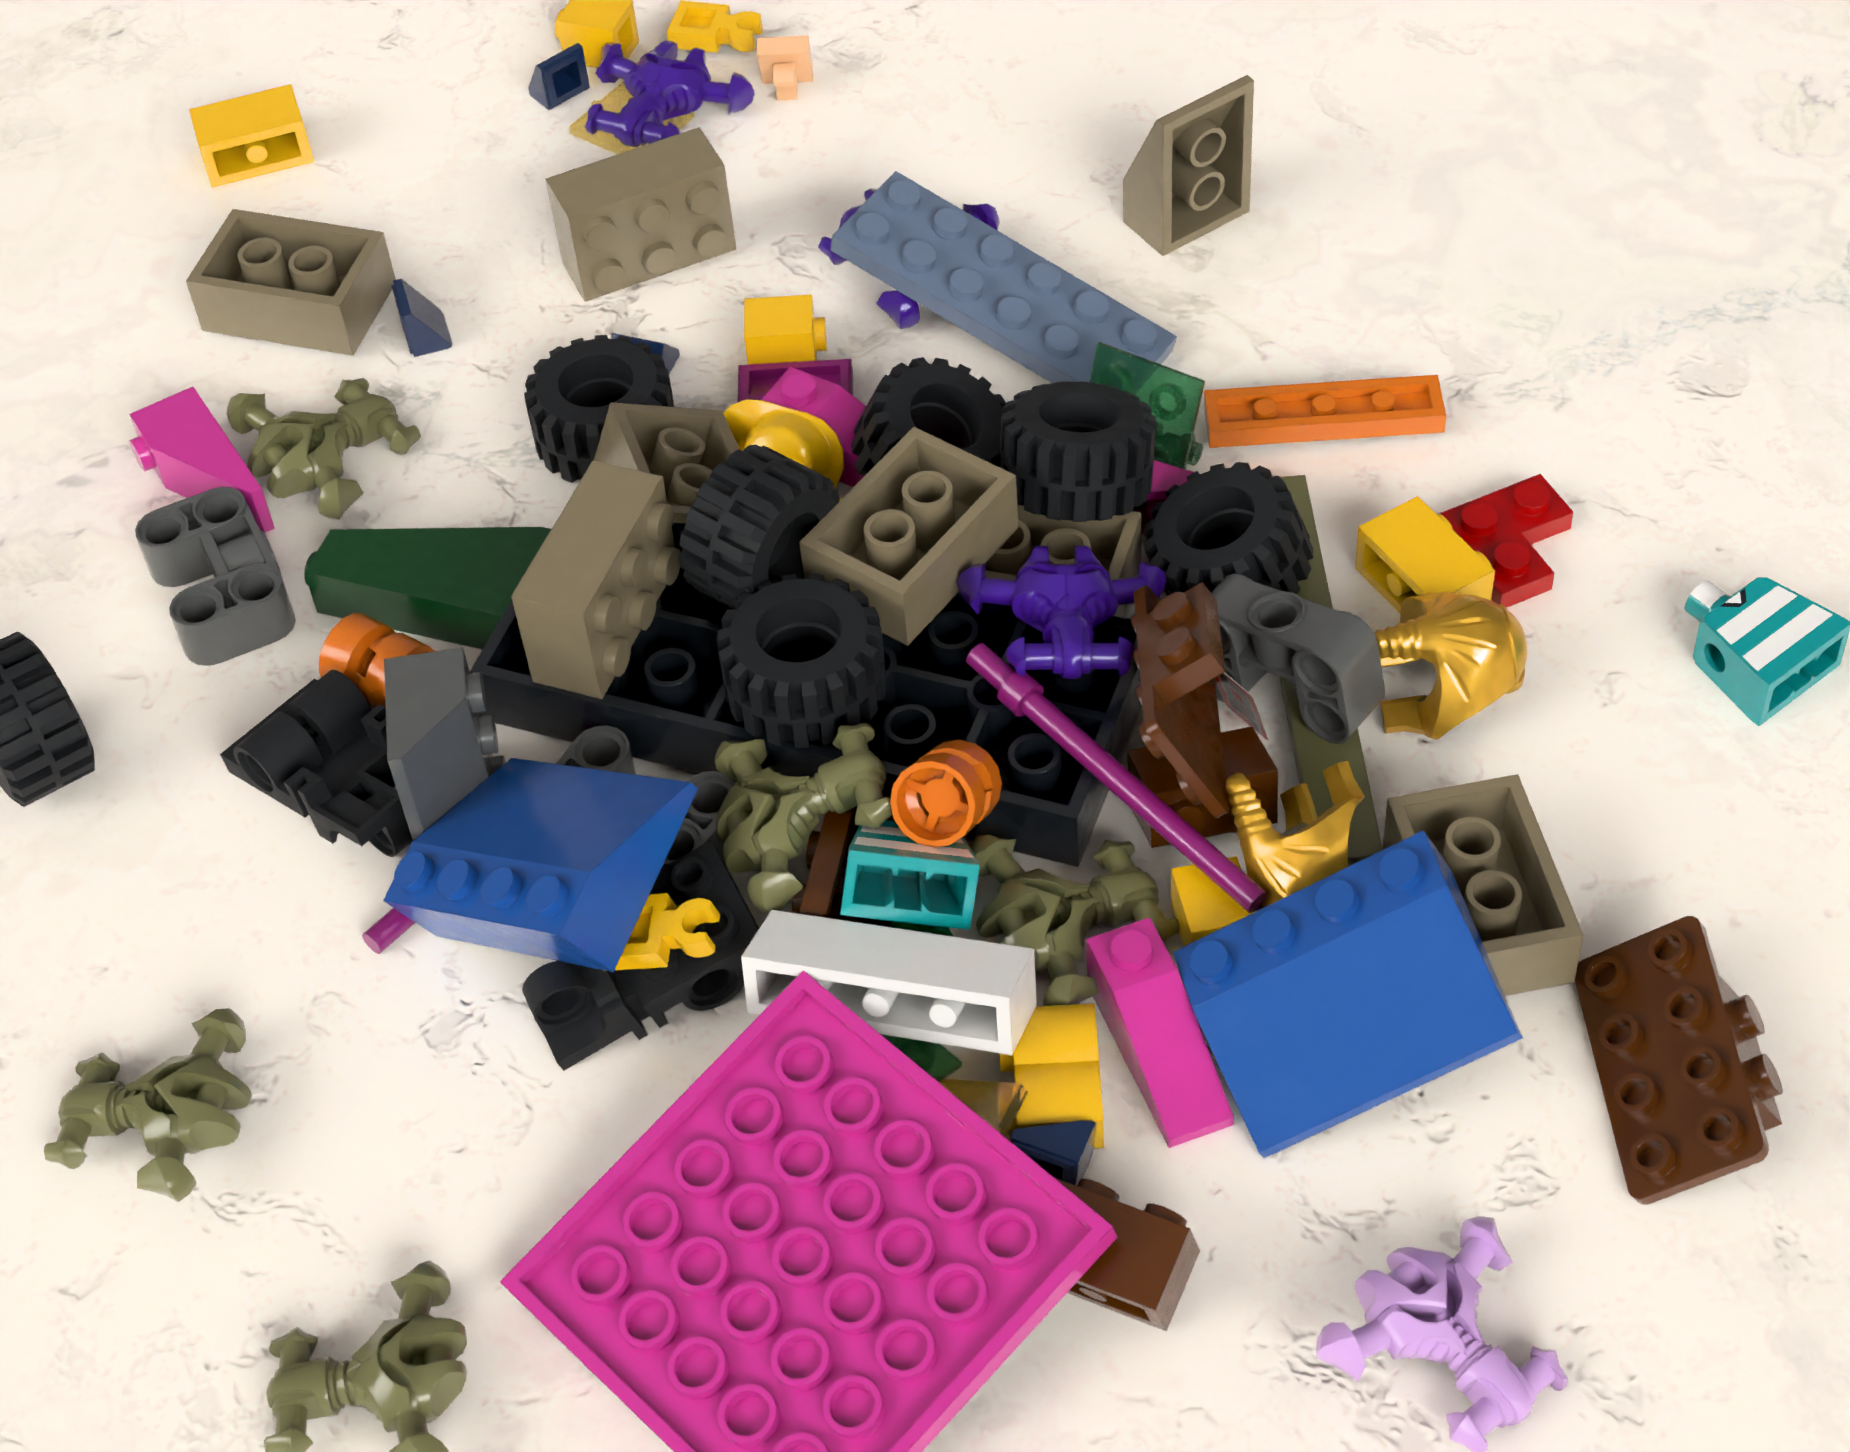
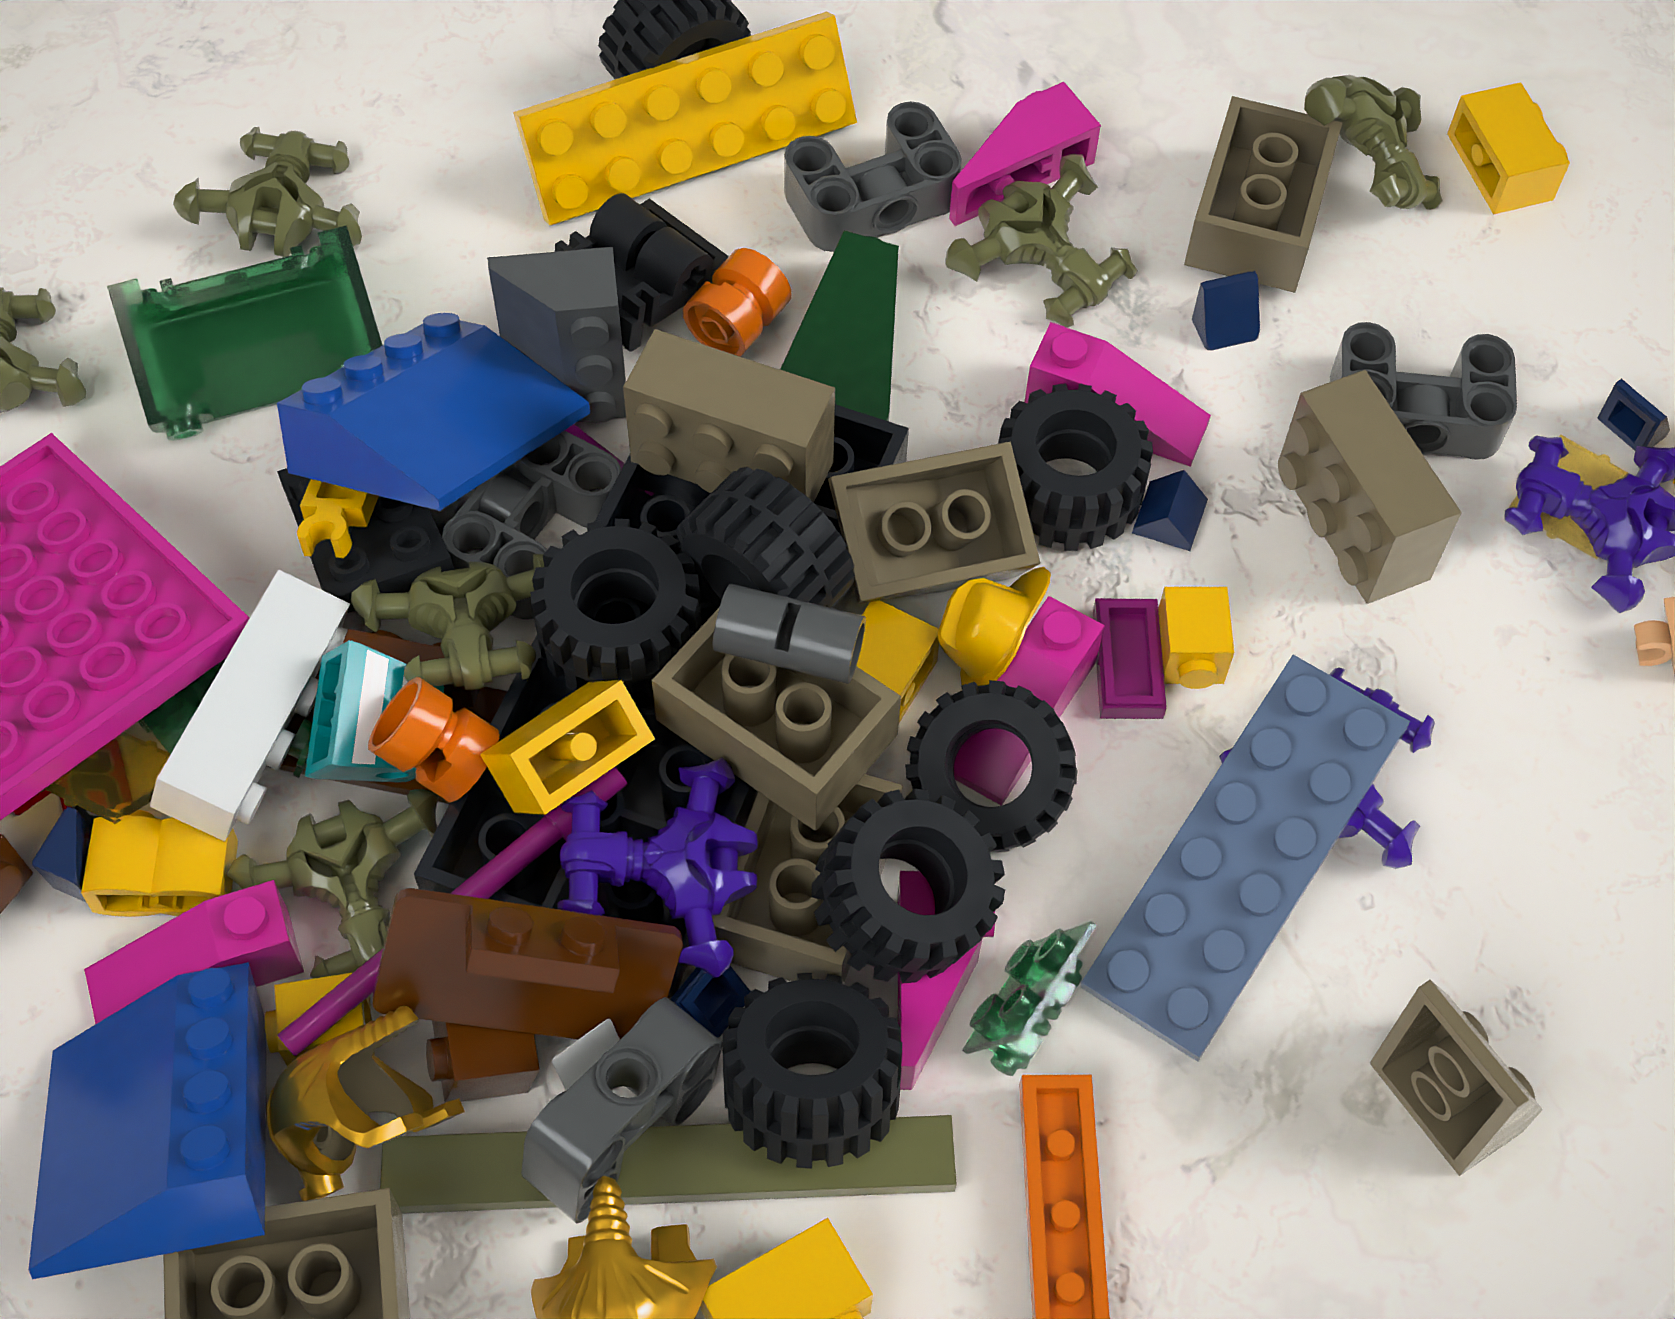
camera: 85 degrees right, 10 degrees up
(126, 715) = (686, 117): none -> yellow plate
(217, 201) = (1378, 126): none -> olive piece
(369, 1090) = (244, 334): none -> clear green windscreen
(491, 410) = (1078, 358): none -> dark pink slope
(518, 222) = (1441, 413): none -> dark grey beam
(865, 480) = (789, 633): none -> dark grey pin
(960, 675) = (567, 747): none -> yellow brick

